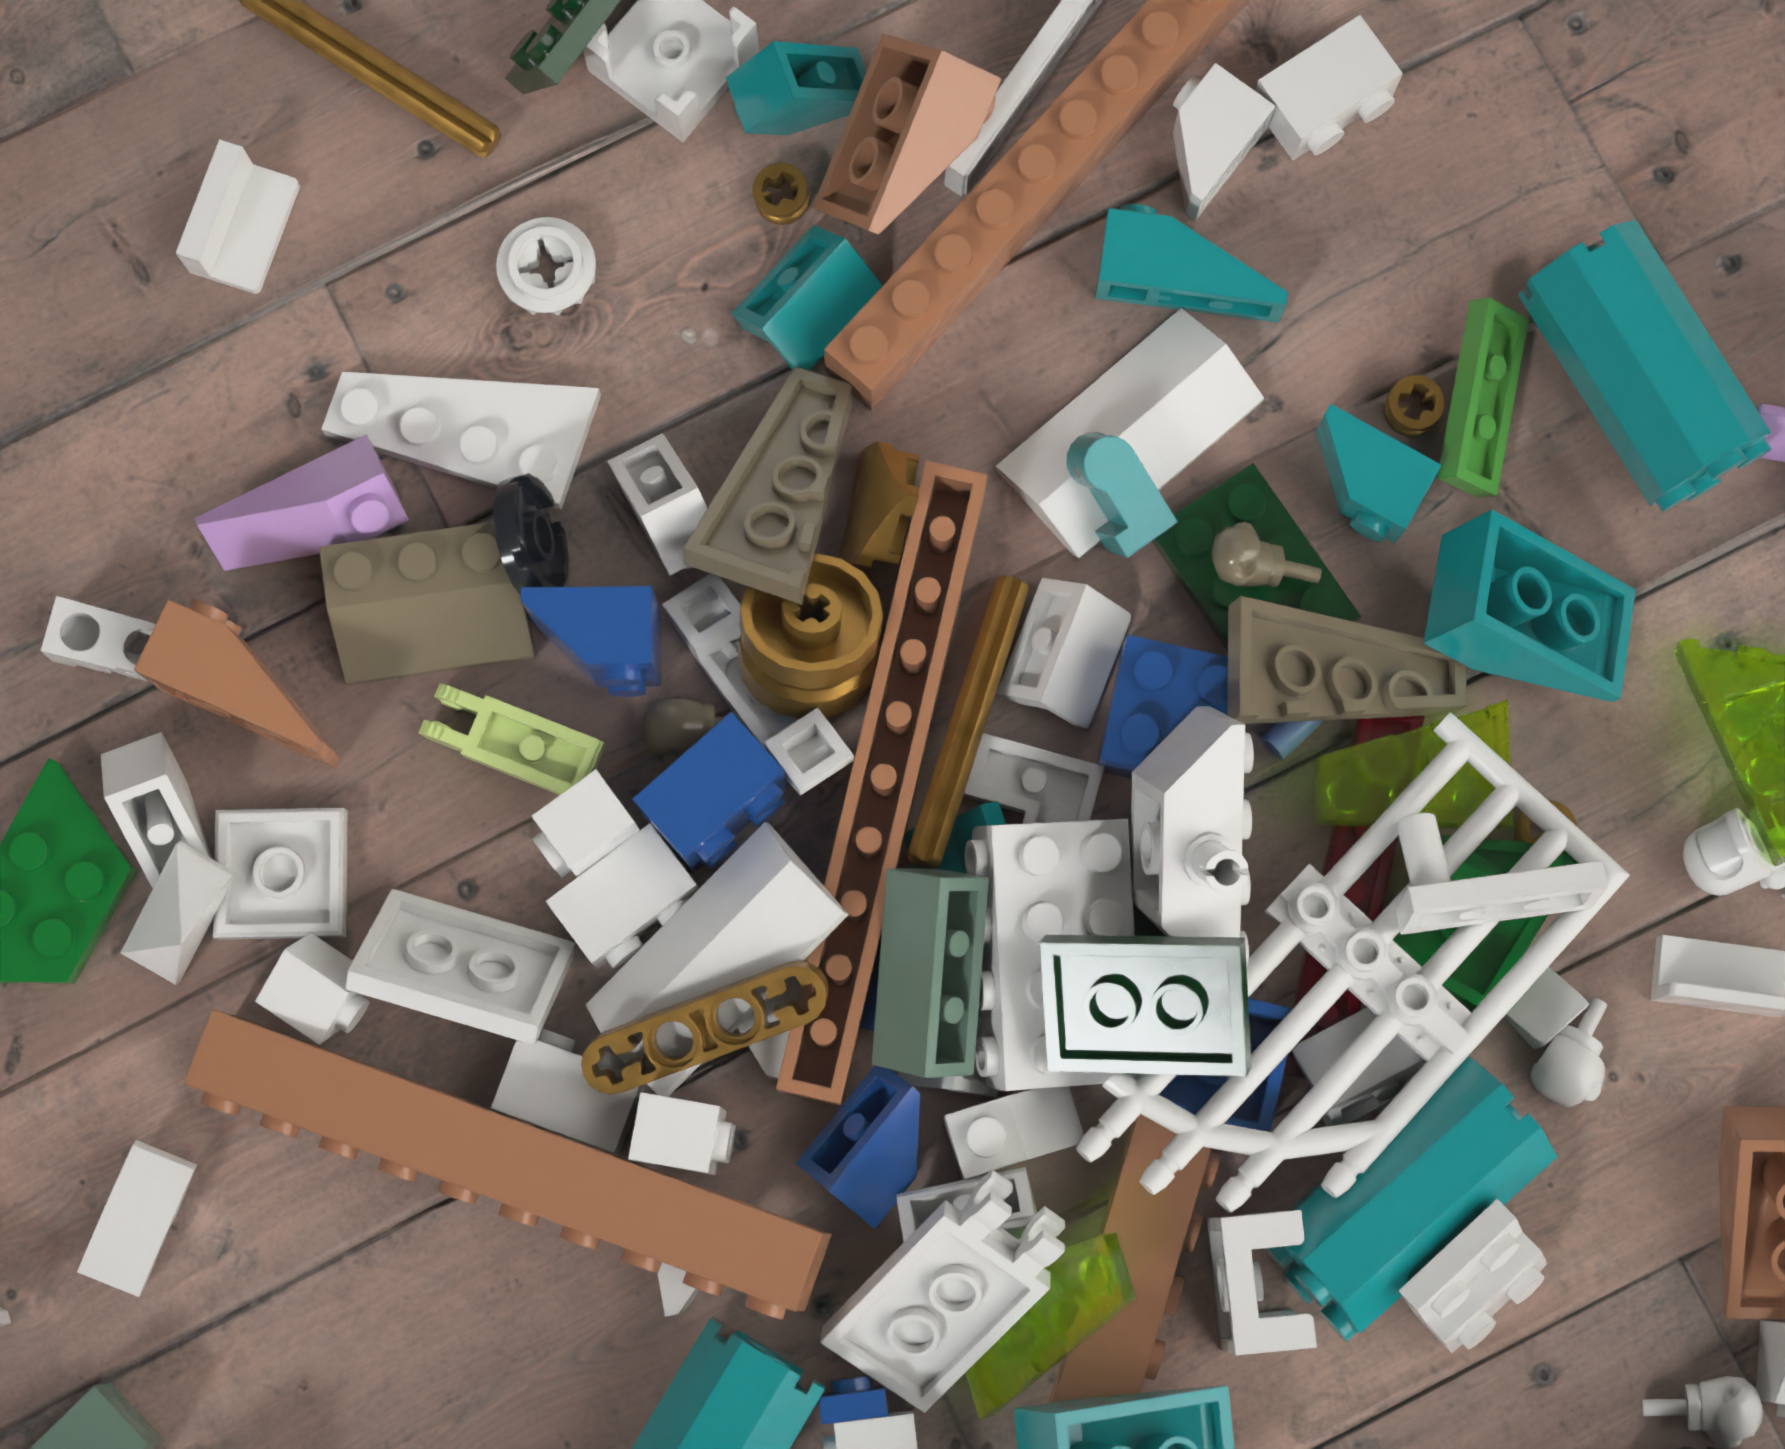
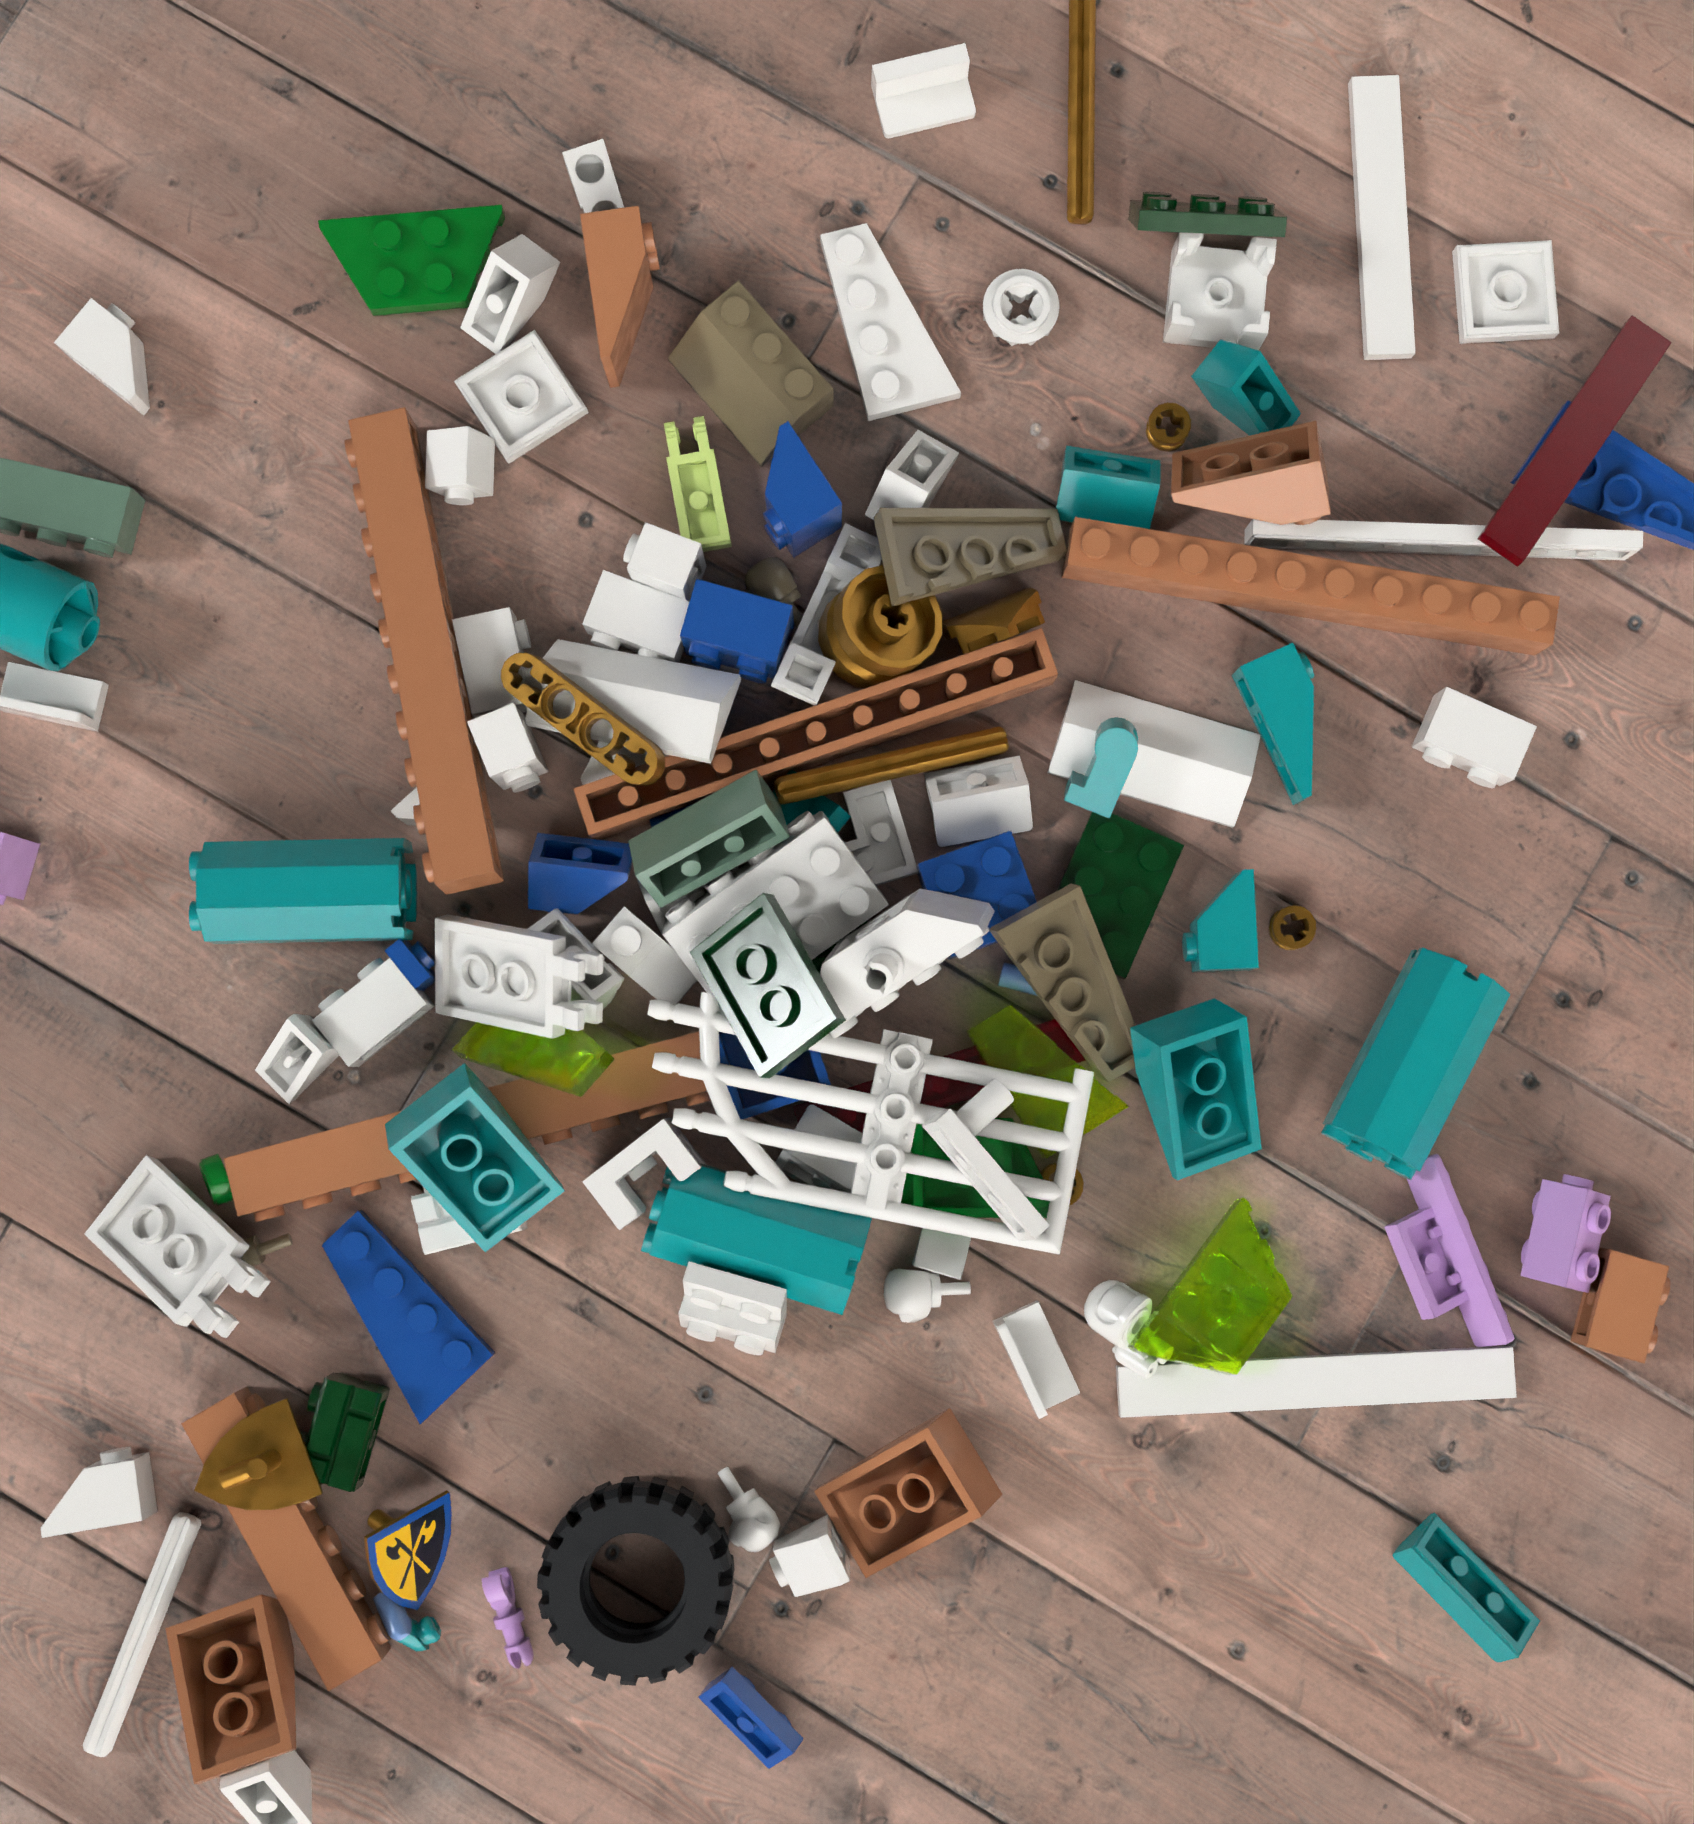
camera: 55 degrees right, 5 degrees up
(137, 1218) = (251, 448): white slope -> none
(178, 912) = (455, 348): white slope -> none
(319, 504) = (769, 265): lavender slope -> none
(461, 966) = (529, 544): white plate -> none
(527, 541) = (829, 408): black tile -> none
(1214, 132) = (1395, 683): white slope -> none
(1248, 561) = (1112, 879): dark tan piece -> none
(1483, 398) = (1326, 969): bright green plate -> none

